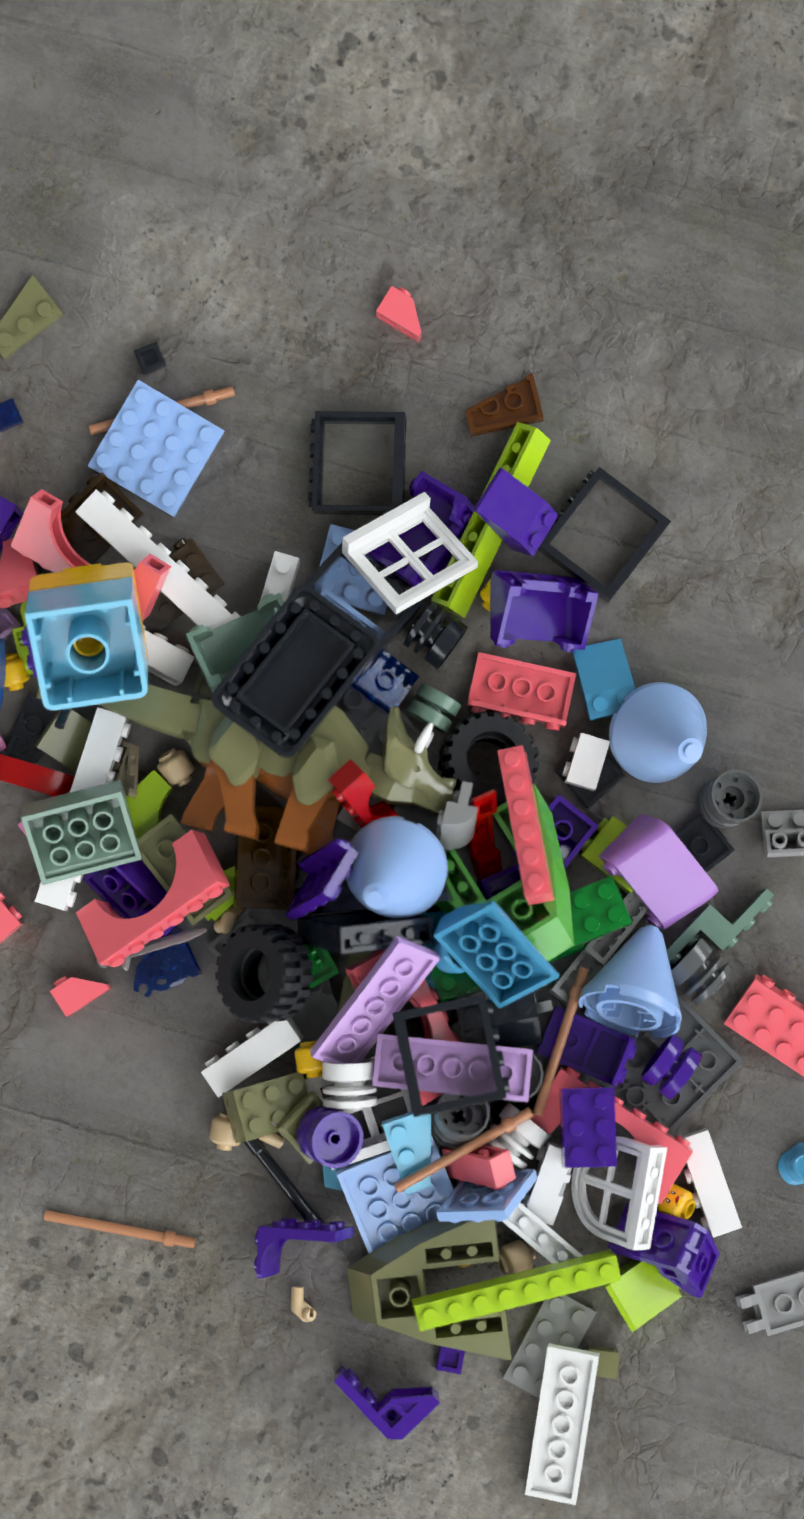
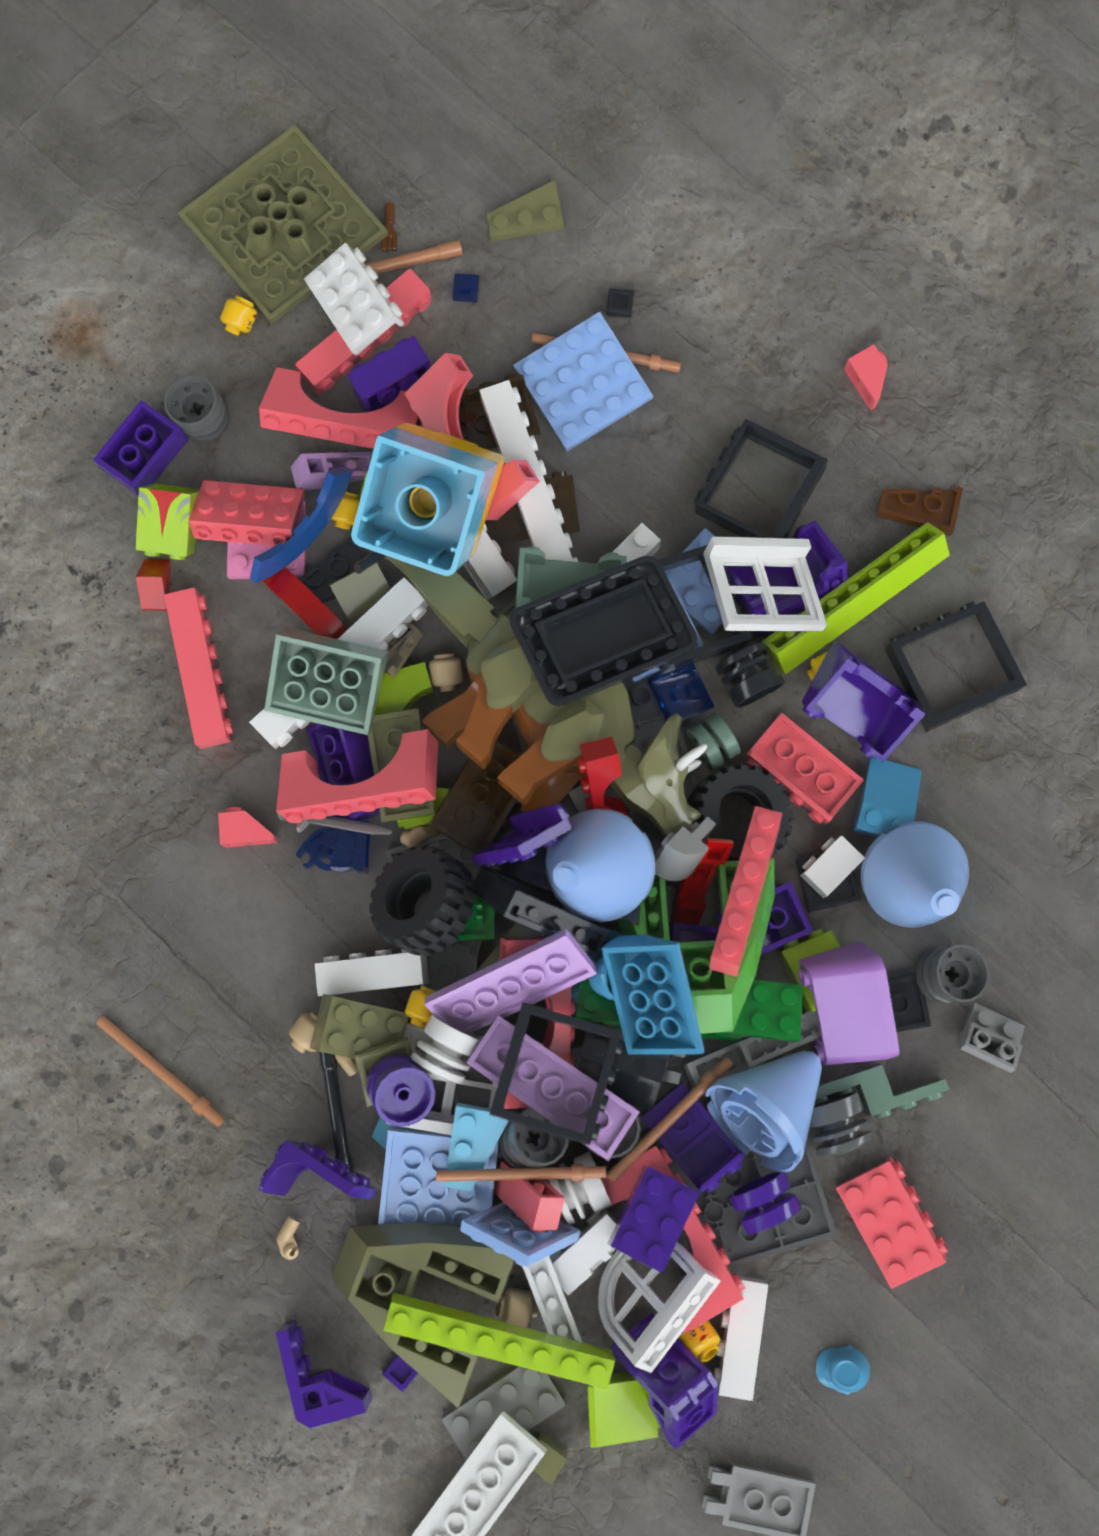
camera: 35 degrees right, 5 degrees down
(515, 513) = (884, 601): dark purple slope -> none

